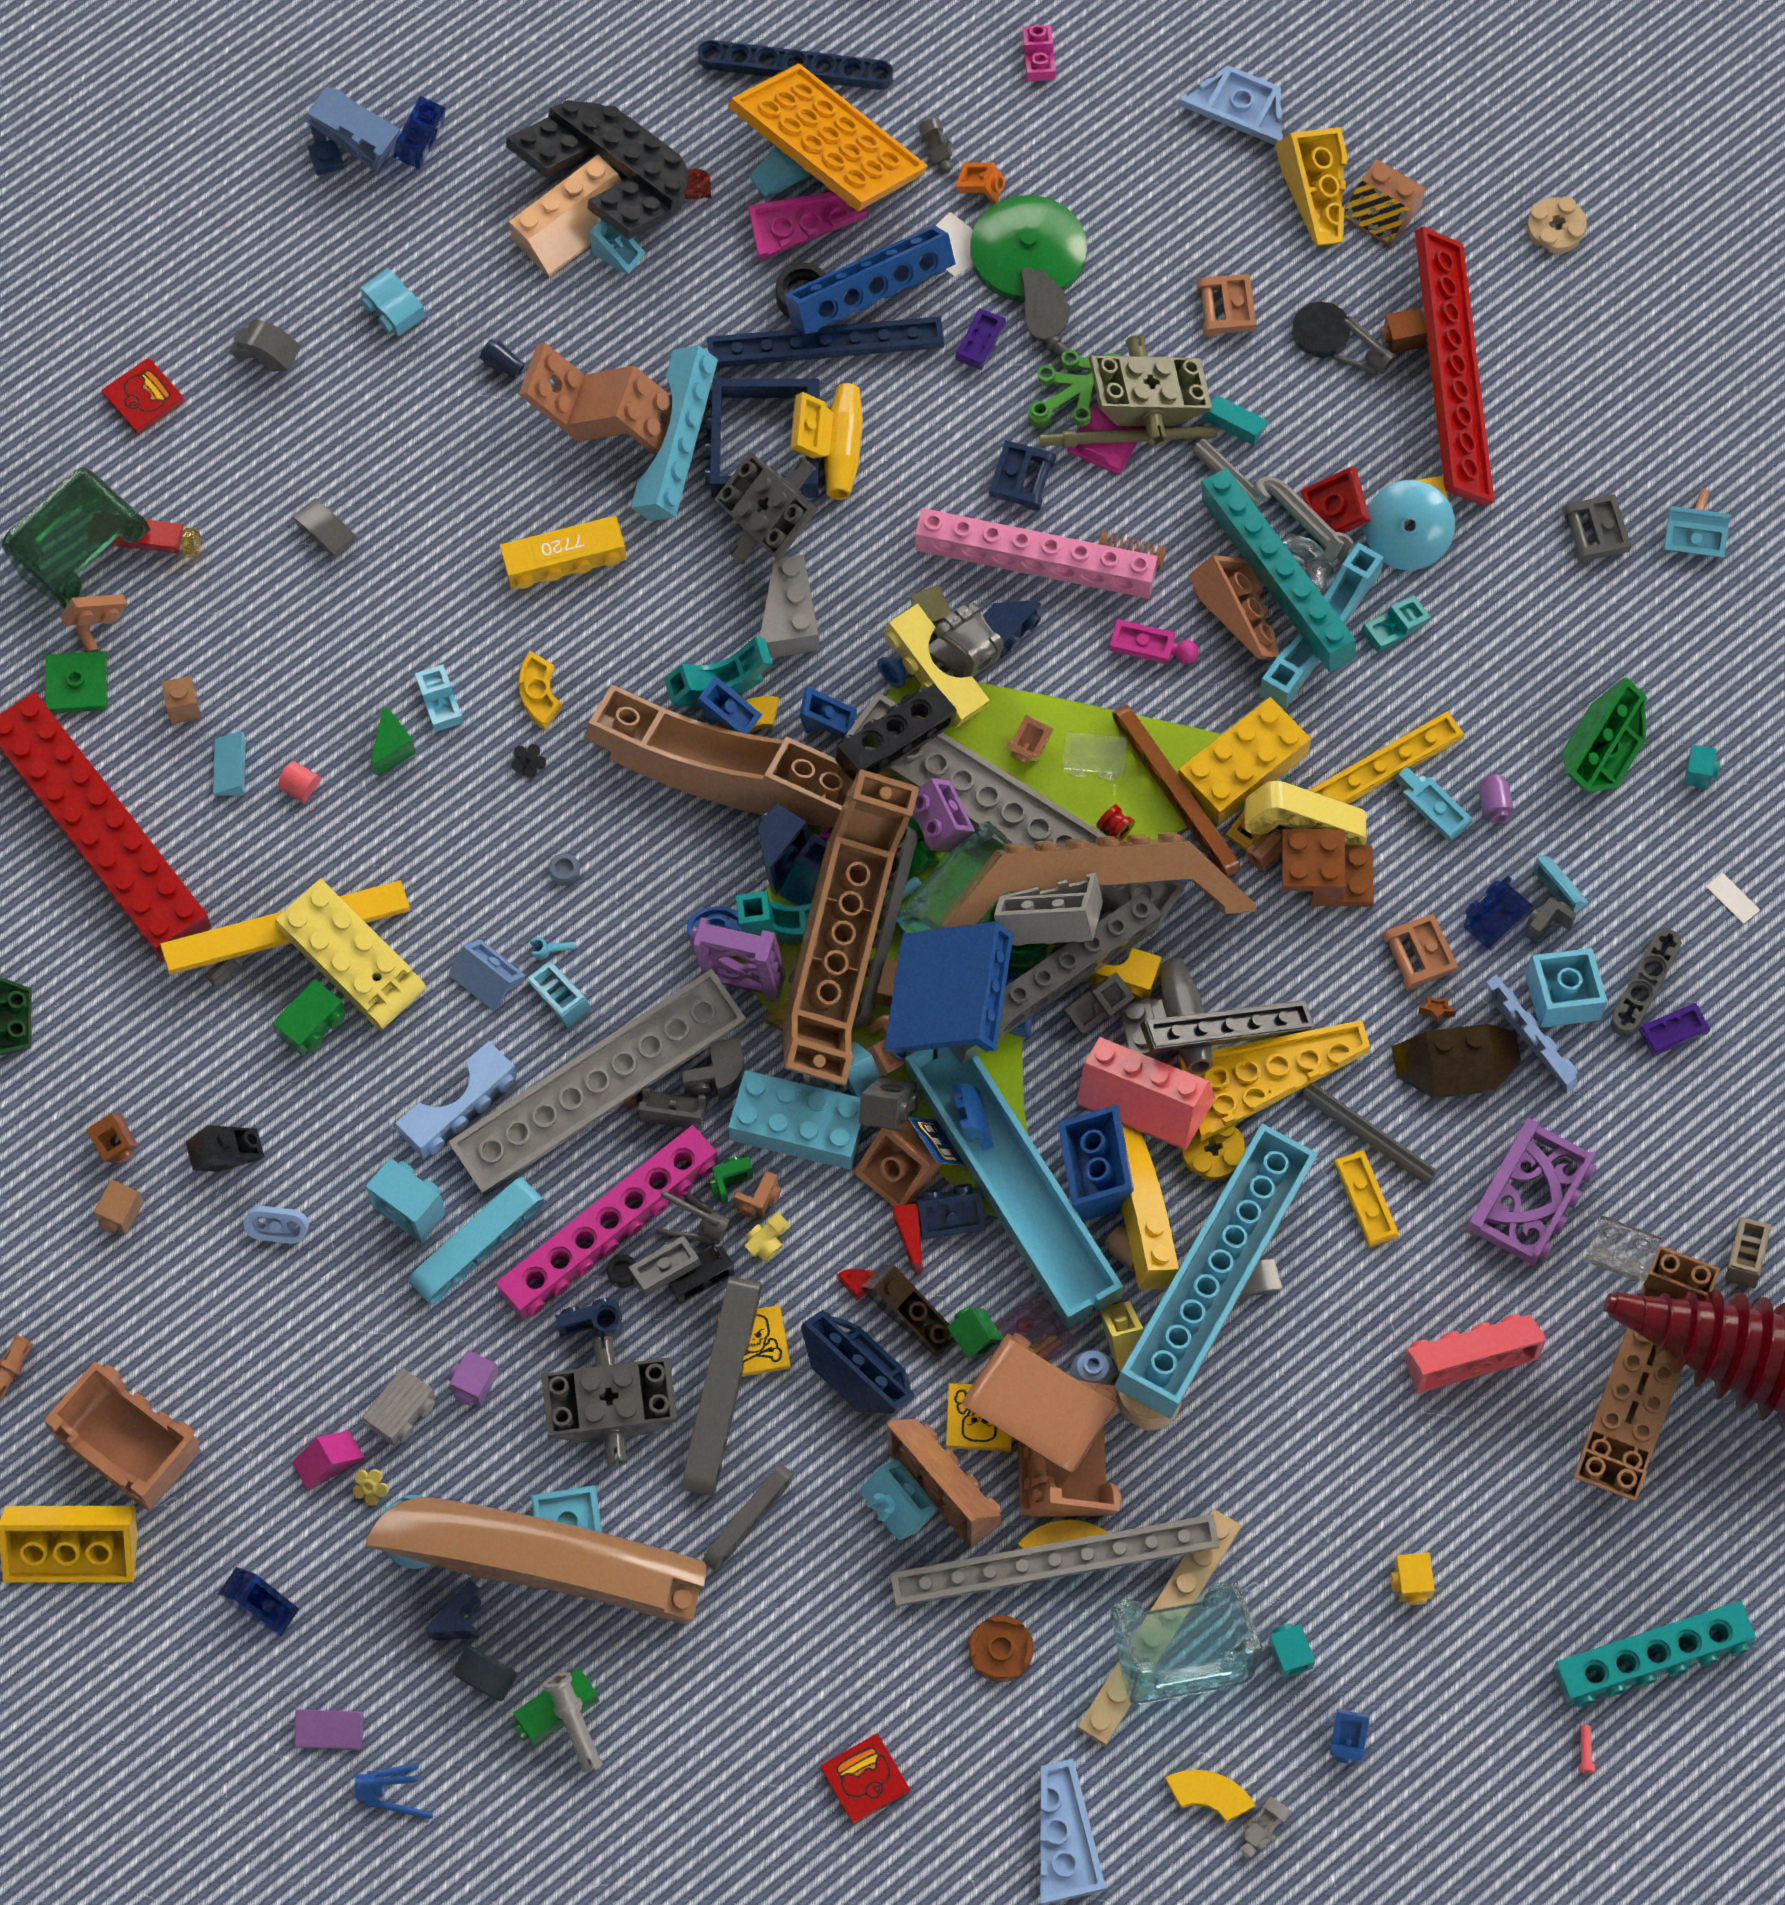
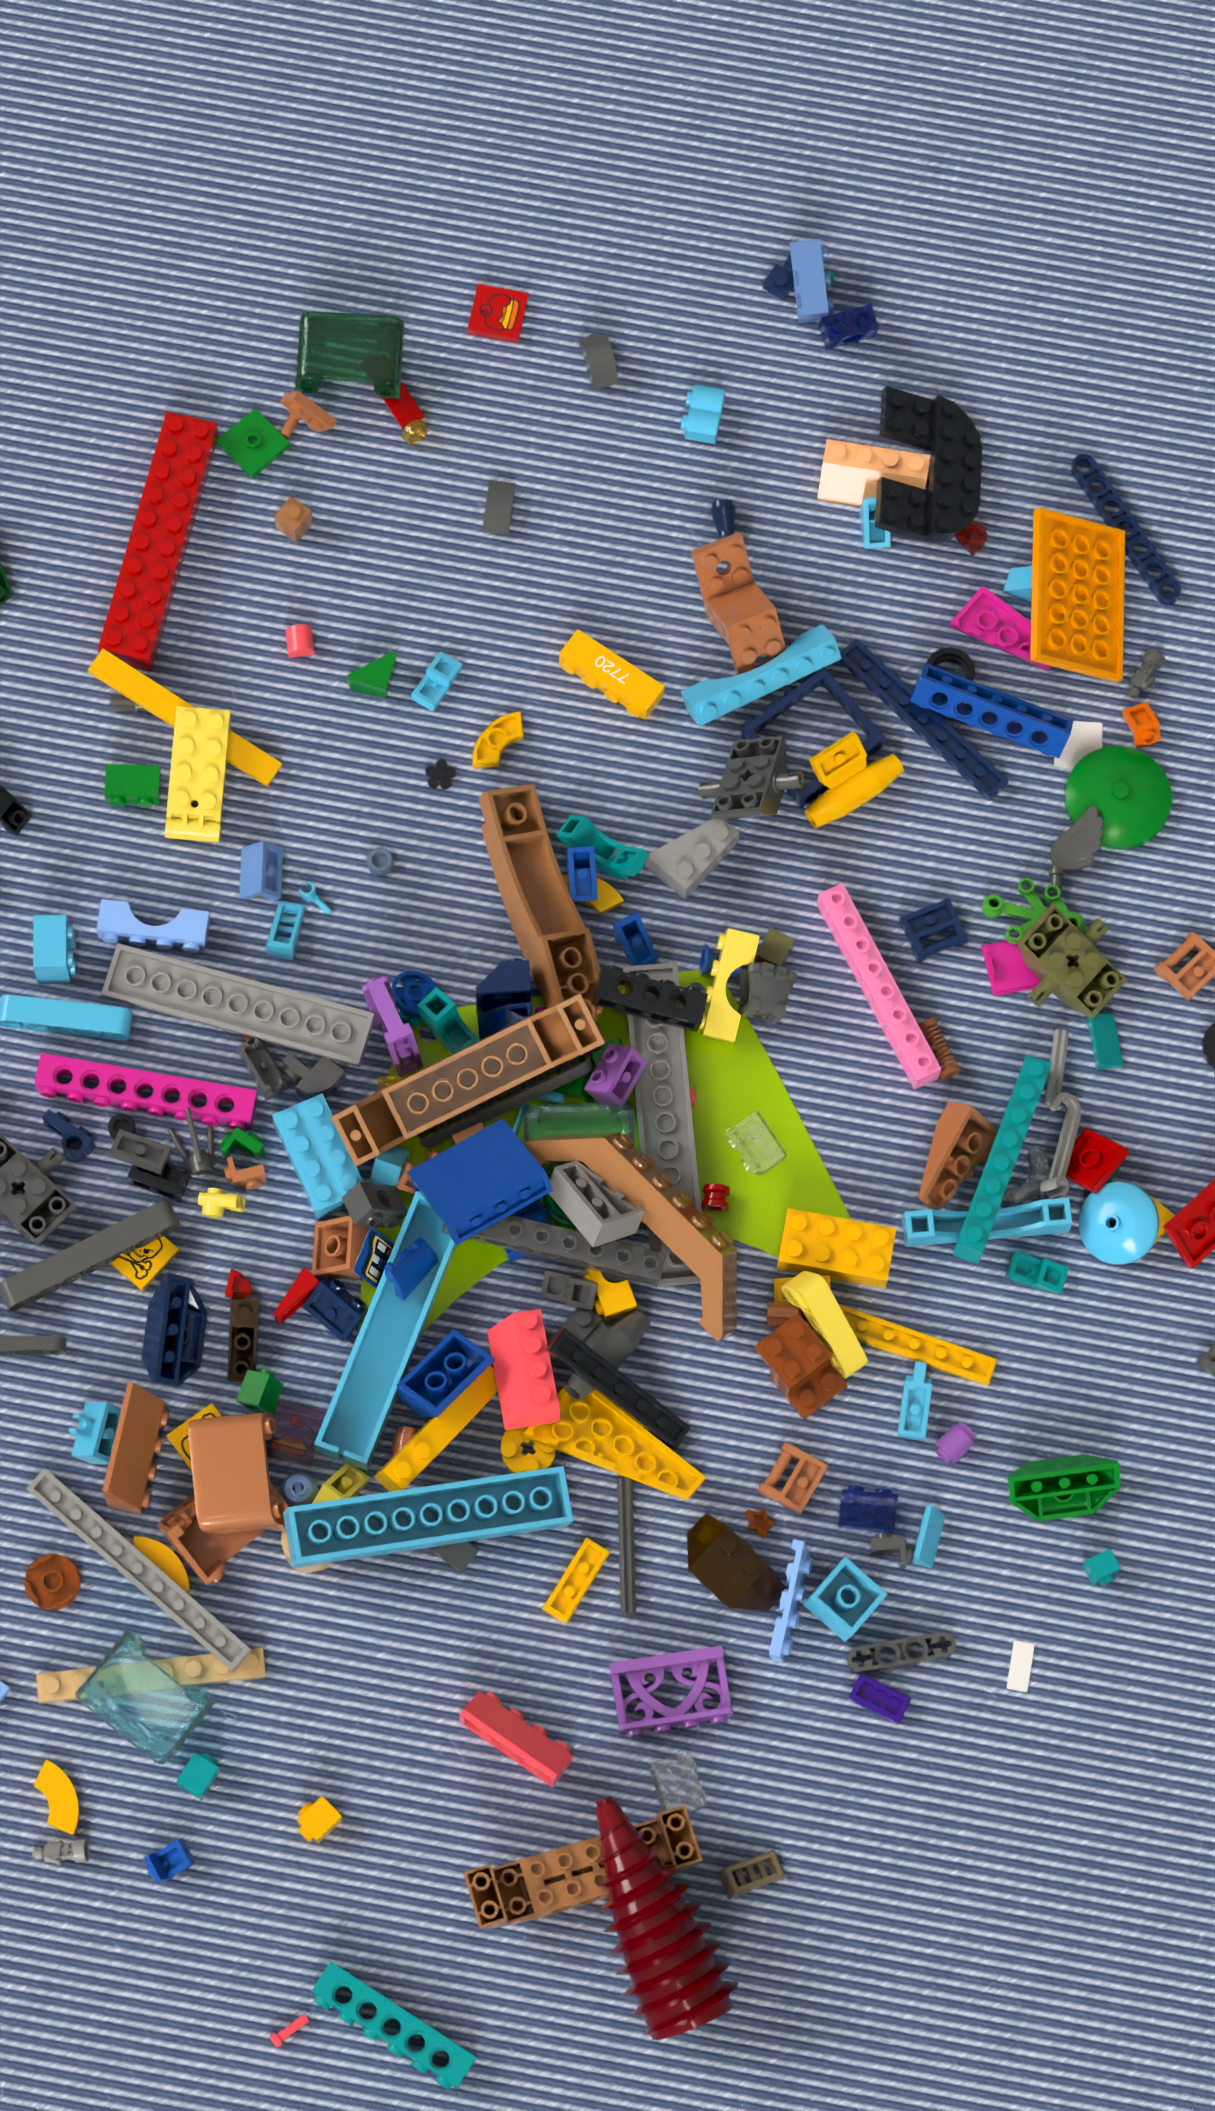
camera: 45 degrees right, 5 degrees up
(229, 765) = (275, 588): medium azure slope -> none
(980, 339) = (1016, 820): dark purple plate -> none
(1012, 621) = (808, 1008): dark blue slope -> none
(1030, 739) = (730, 1092): nougat bracket -> none
(1070, 438) = (988, 940): olive bar -> none
(1151, 643) = (876, 1117): dark pink plate -> none
(1175, 790) = (775, 1220): dark orange beam -> none

